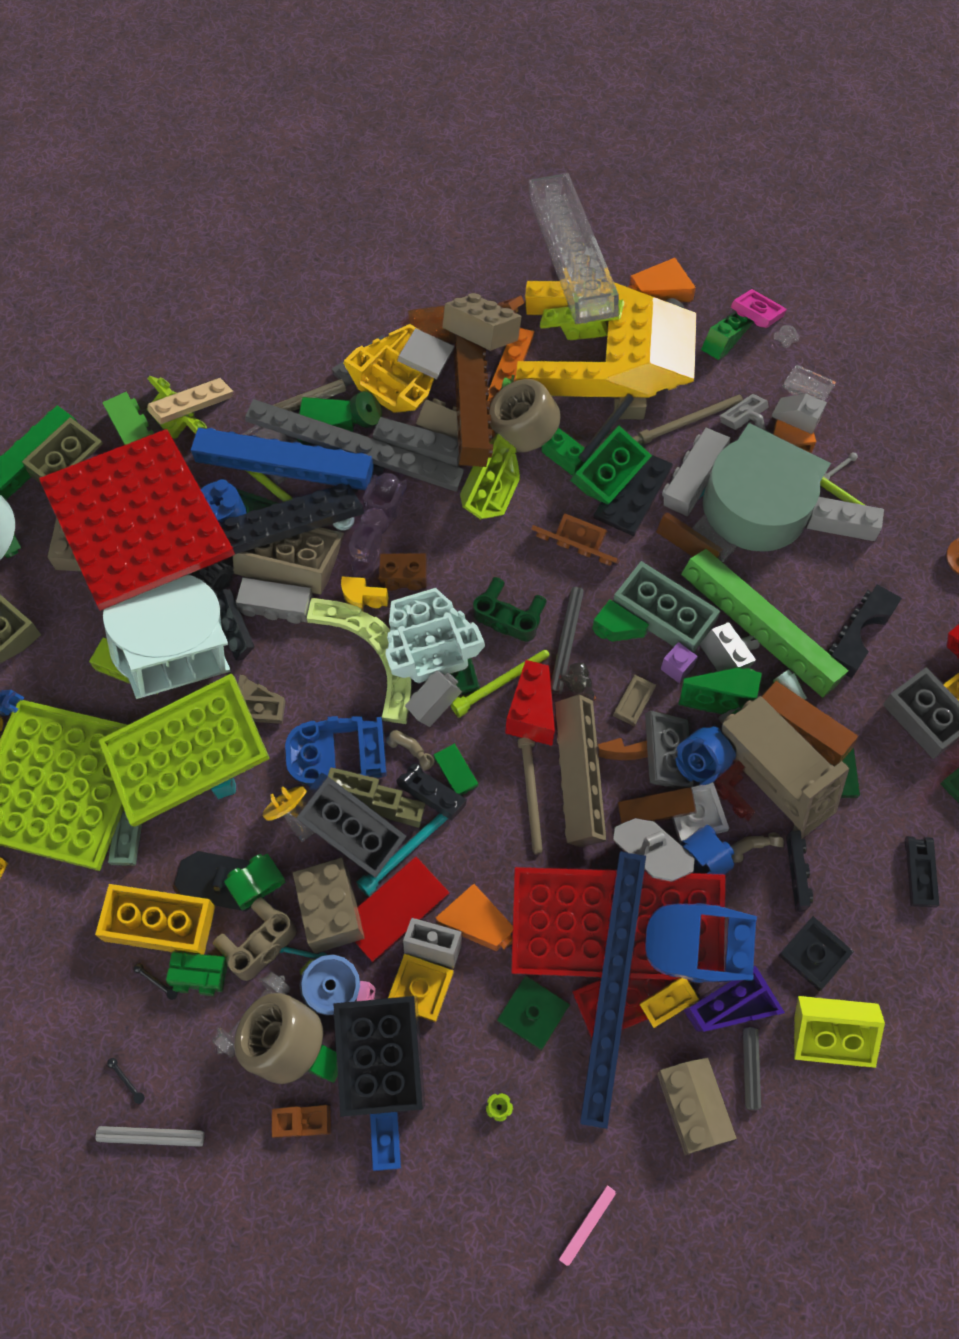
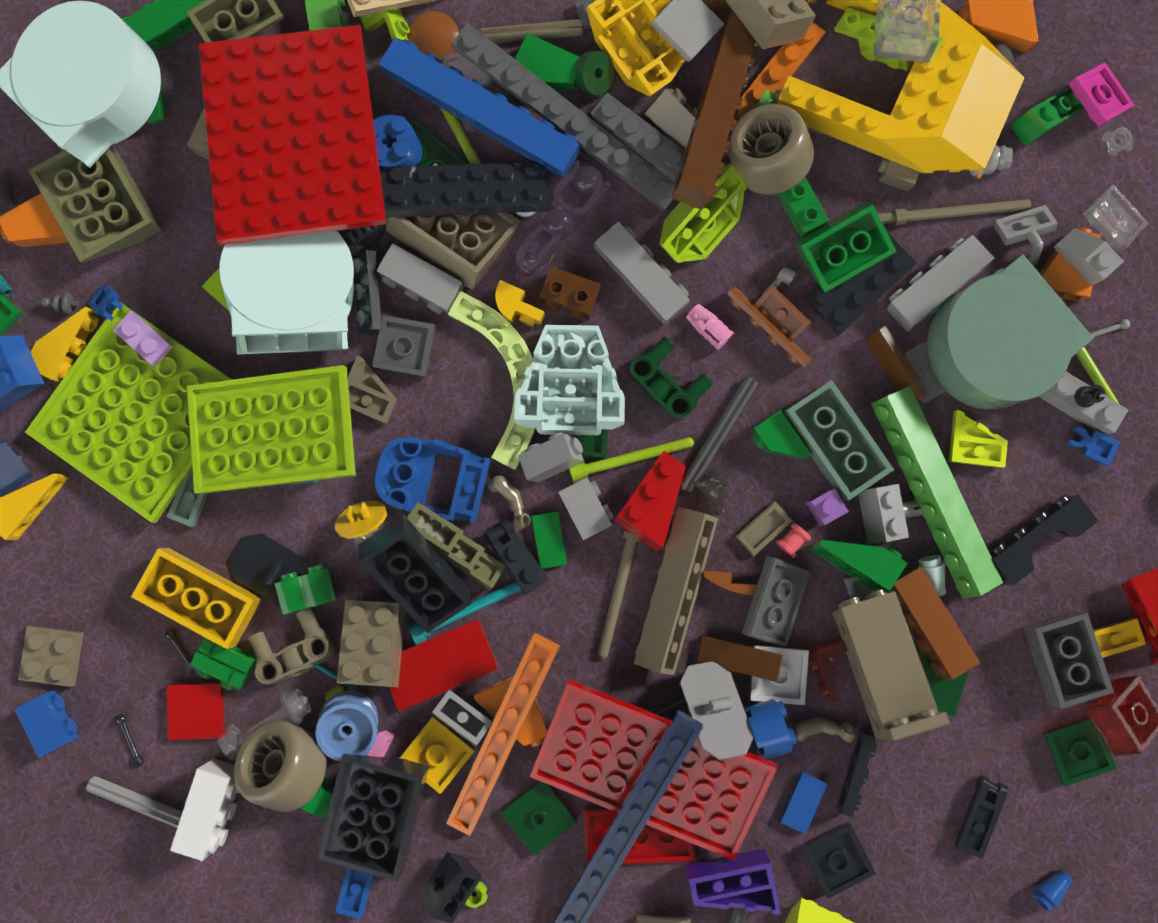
camera: 20 degrees right, 20 degrees up
(29, 1026) = (50, 656): none -> dark tan plate
(42, 1088) = (47, 723): none -> blue brick
(48, 719) = (143, 338): none -> lavender plate
(181, 1029) = (195, 711): none -> red tile
(221, 1108) = (207, 811): none -> white brick
(228, 420) = (433, 33): none -> dark orange dish
(277, 656) = (404, 346): none -> dark grey plate
(301, 1121) = (283, 839): dark orange slope -> none
(456, 538) = (641, 272): none -> light grey brick
(473, 942) = (503, 733): none -> orange plate
(473, 1103) = (449, 887): none -> black brick
(477, 731) = (585, 508): none -> light grey brick
(527, 560) = (709, 326): none -> bright pink hinge
(572, 505) = (785, 275): none -> light grey hand
(607, 426) = (858, 197): black bar -> none
(663, 698) = (793, 540): none -> coral bush
(669, 1001) = (672, 860): yellow plate -> none
(674, 942) = (701, 811): blue slope -> none
(702, 374) = (1000, 159): none -> light grey animal
(704, 755) = (810, 625): blue brick -> none
(765, 906) = (803, 802): none -> blue tile
(778, 578) = (975, 444): none -> neon yellow wing
(846, 505) = (1088, 396): none -> black pin
(873, 547) = (1096, 446): none -> blue plate

